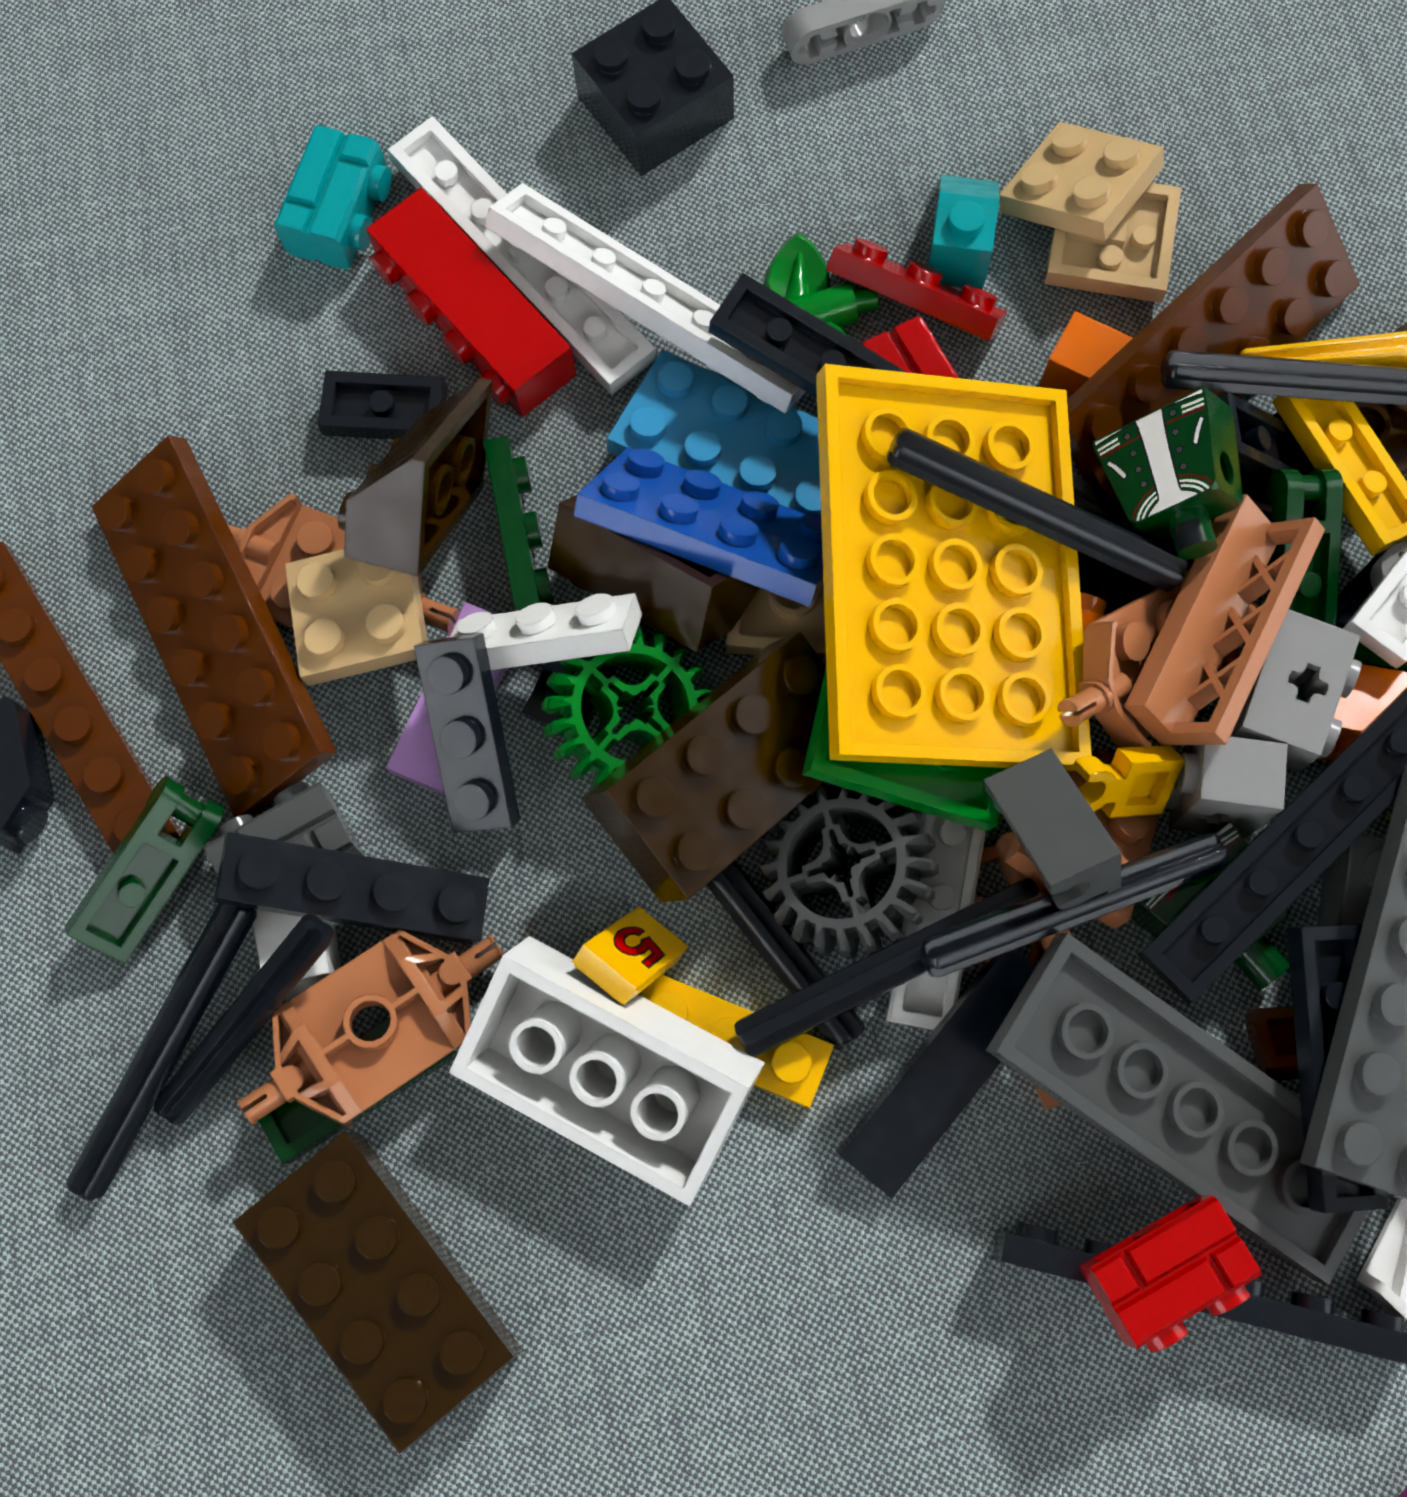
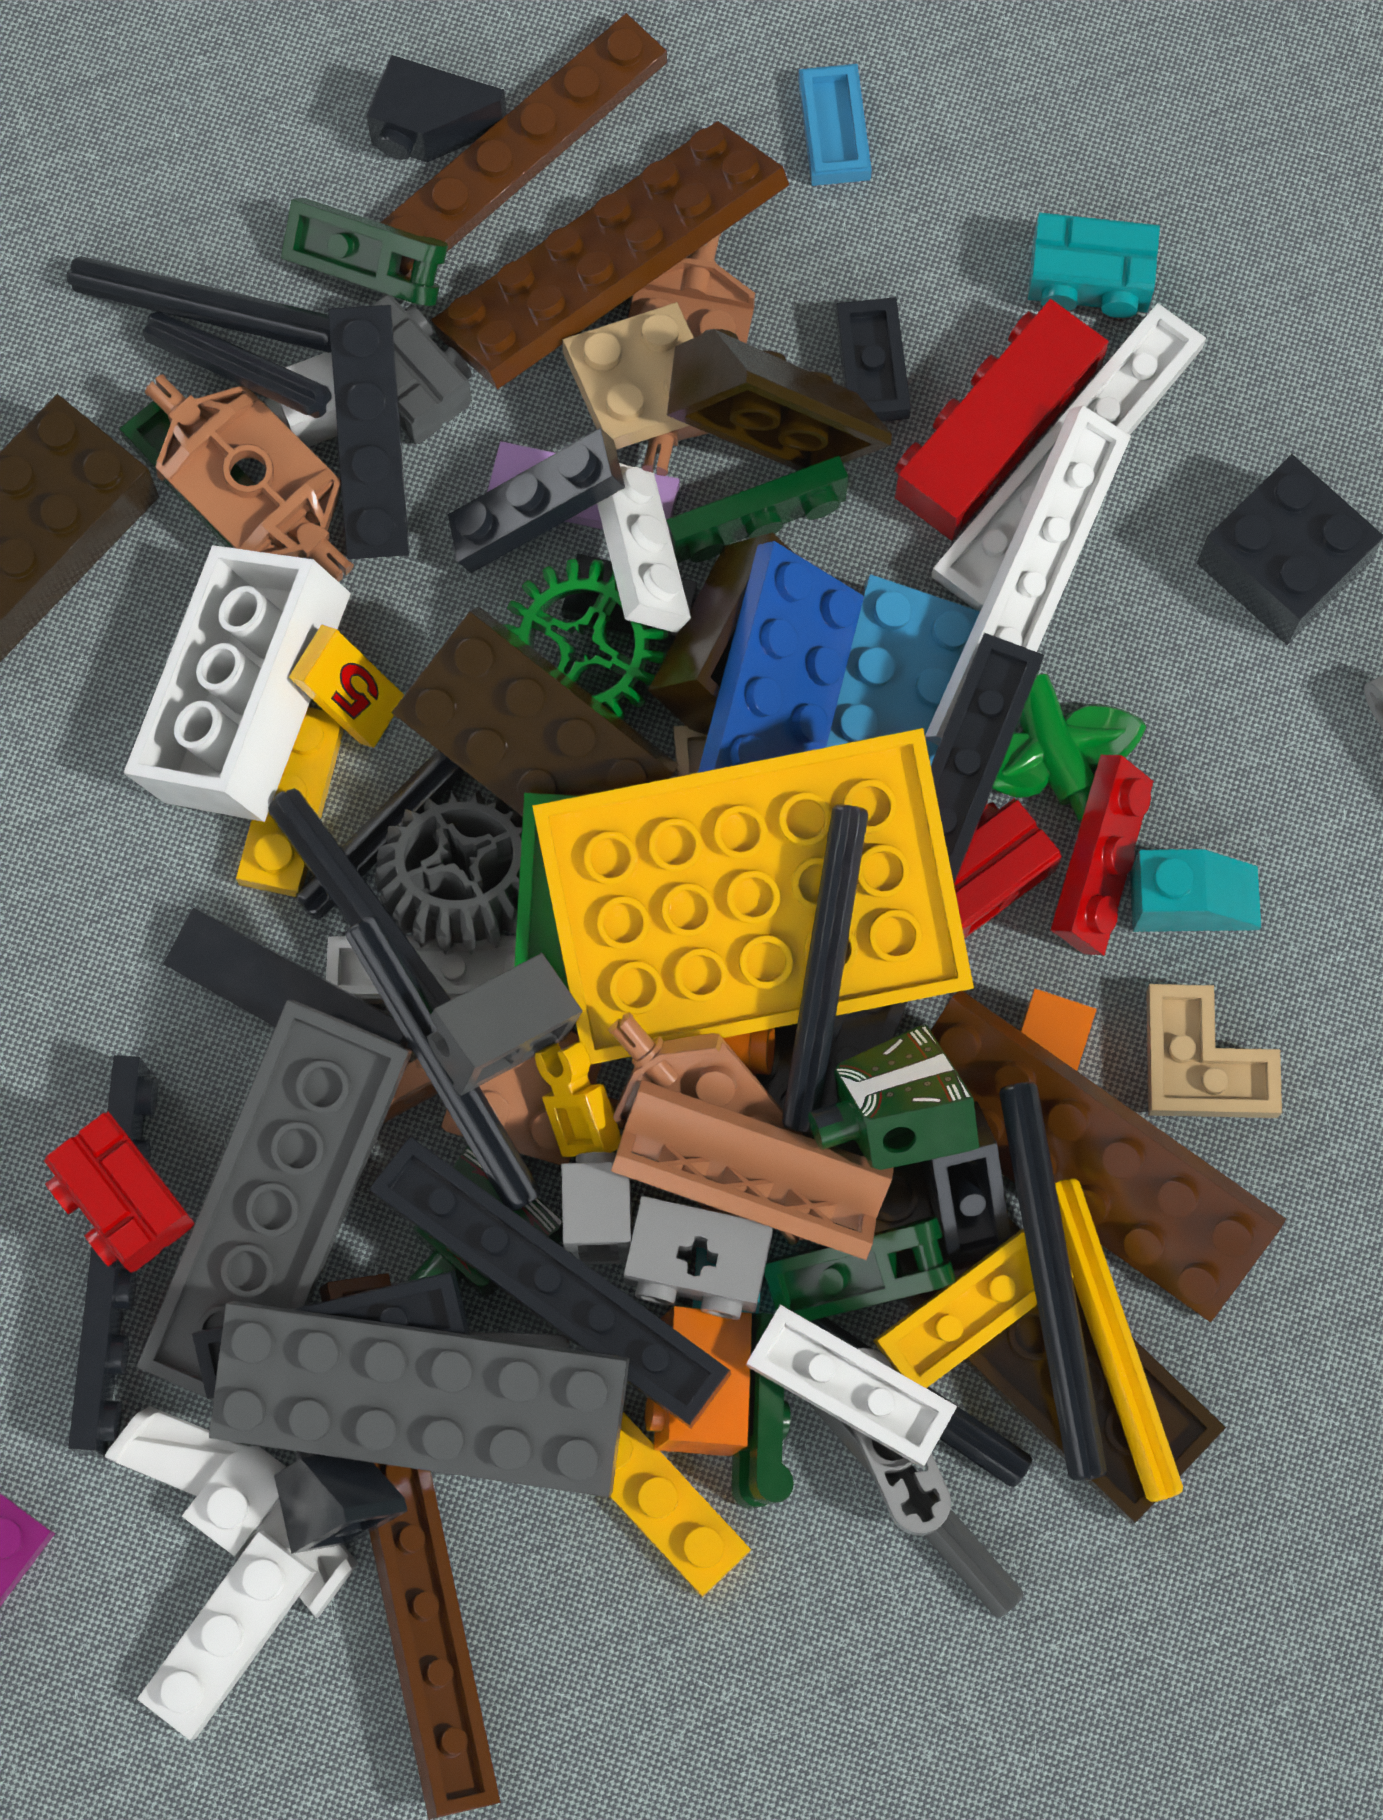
camera: 75 degrees right, 0 degrees up
(124, 403) = (834, 124): none -> dark azure tile
(1082, 181) = (1265, 1004): tan plate -> none

